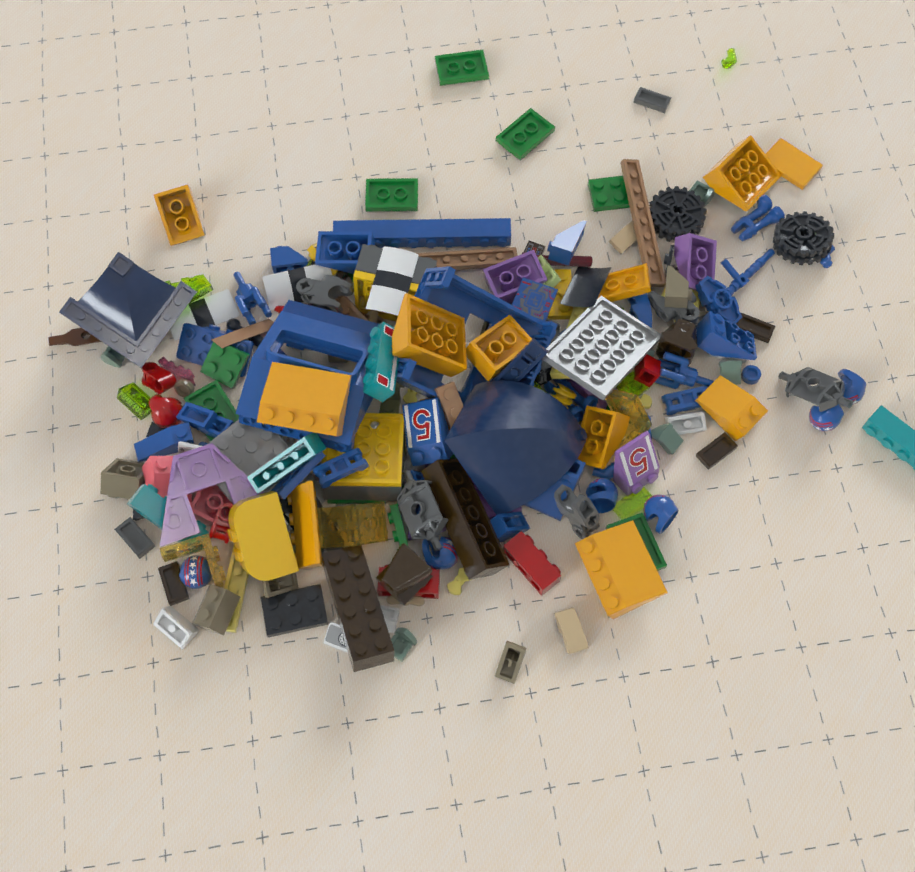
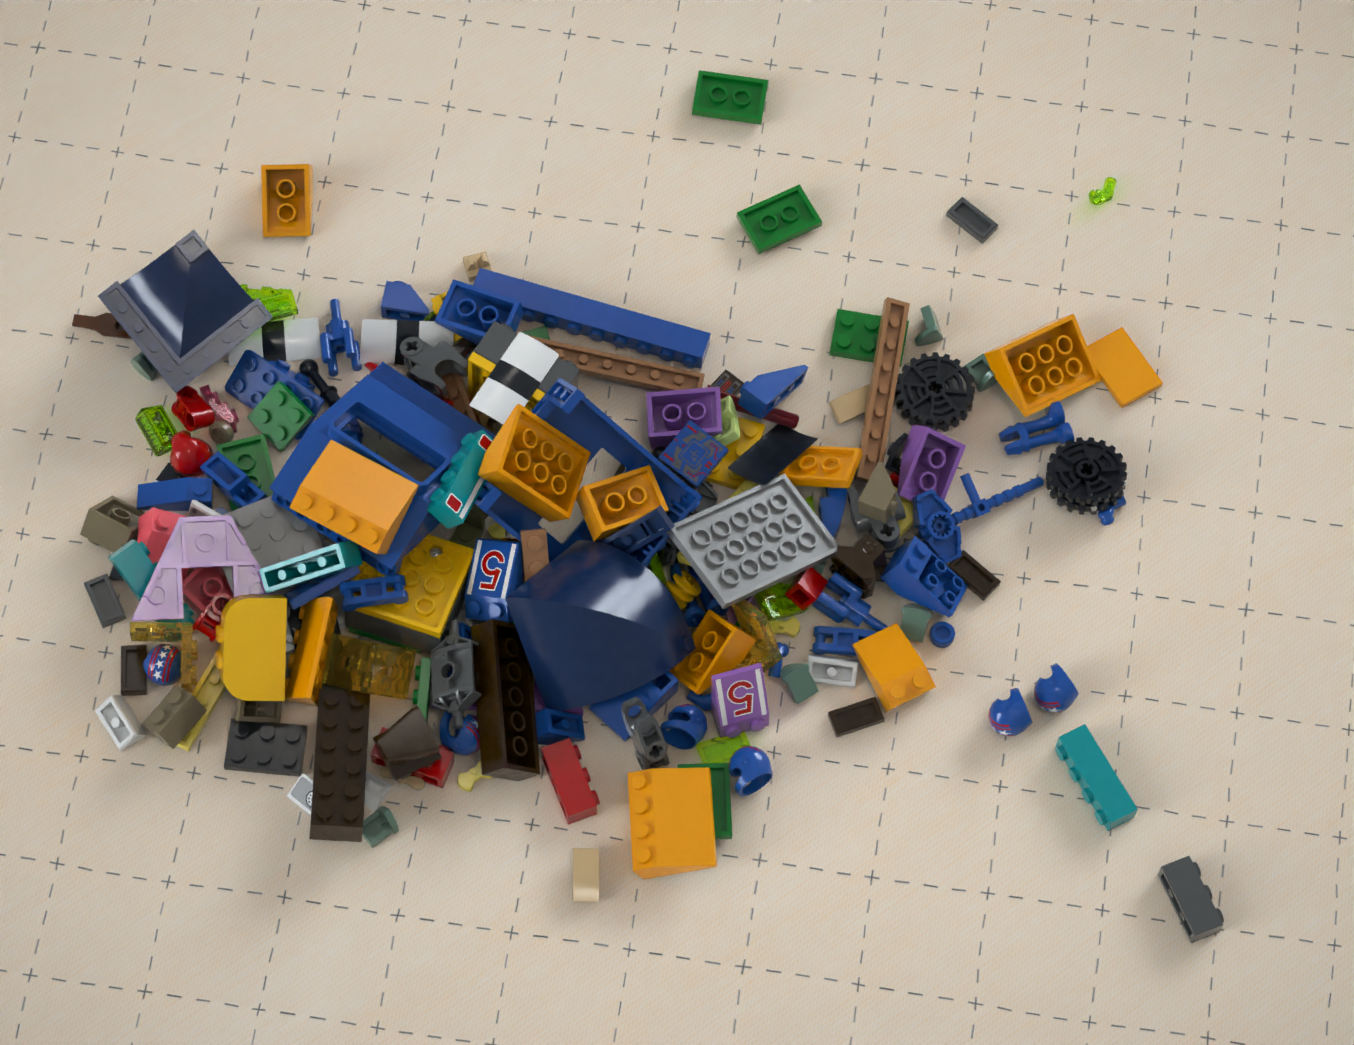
camera: 15 degrees right, 0 degrees up
(243, 333) = (317, 385): medium nougat sticker -> none
(326, 220) = (474, 263): none -> tan tile
(391, 194) = (570, 252): green plate -> none
(510, 662) = (499, 887): dark tan slope -> none
(658, 174) = (933, 332): none -> sand green tile
(826, 394) = (1012, 688): dark grey plate -> none

